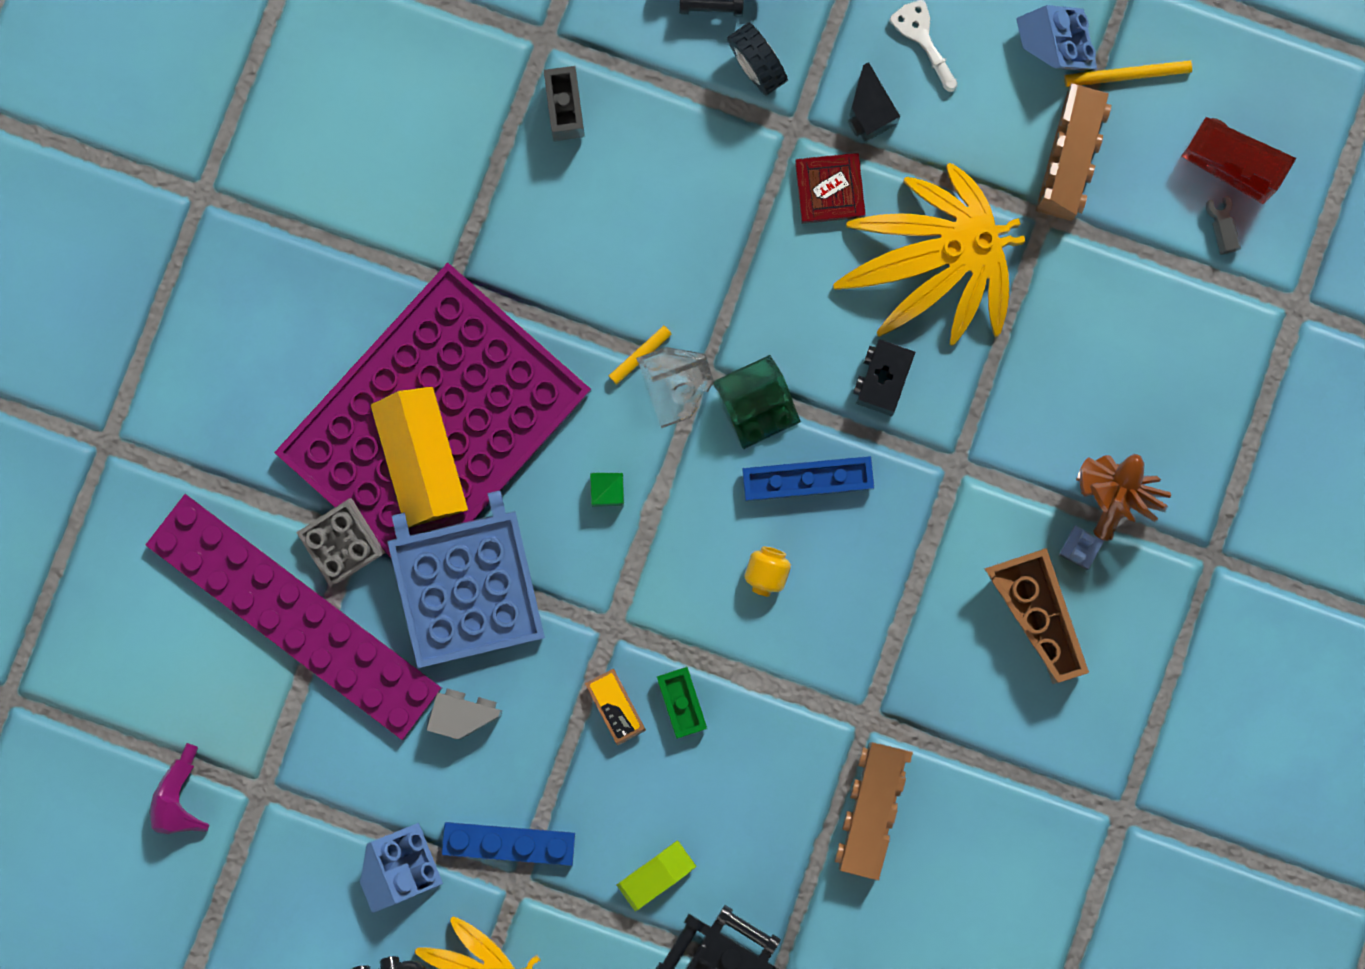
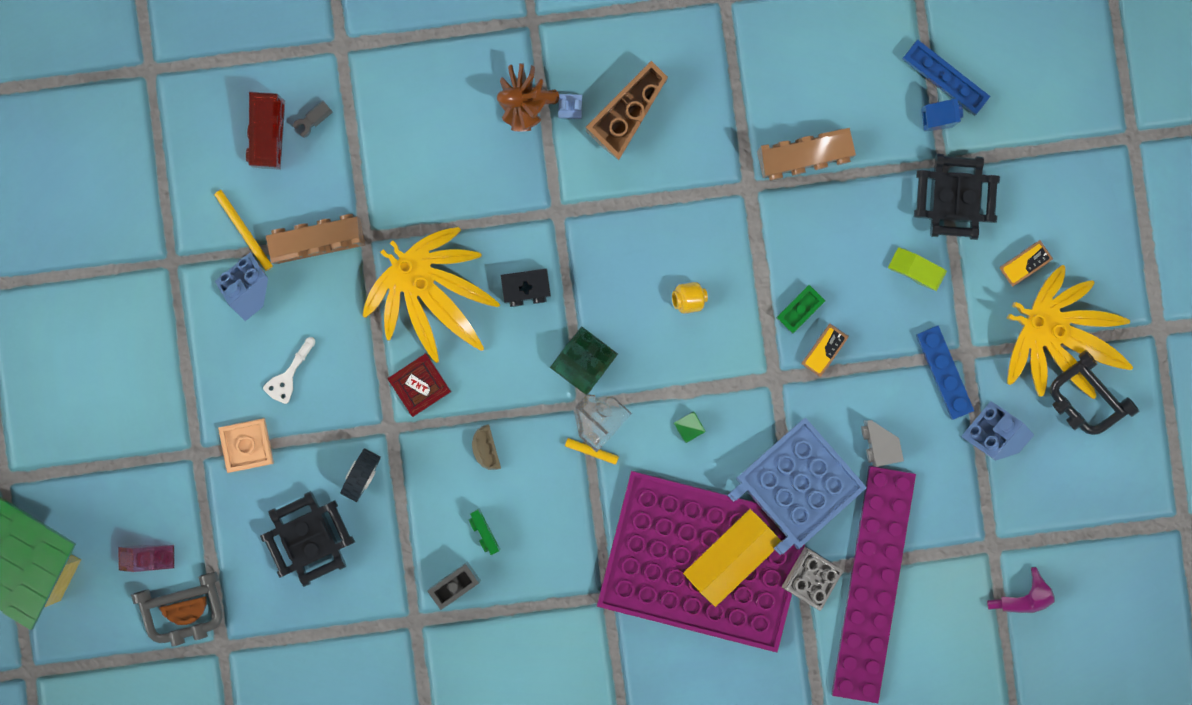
camera: 120 degrees left, 5 degrees up
(597, 173) = (488, 540): none -> green plate
(710, 226) = (484, 448): none -> dark tan plate
(808, 478) = (616, 302): blue plate -> none
(872, 107) = (352, 385): black slope -> none

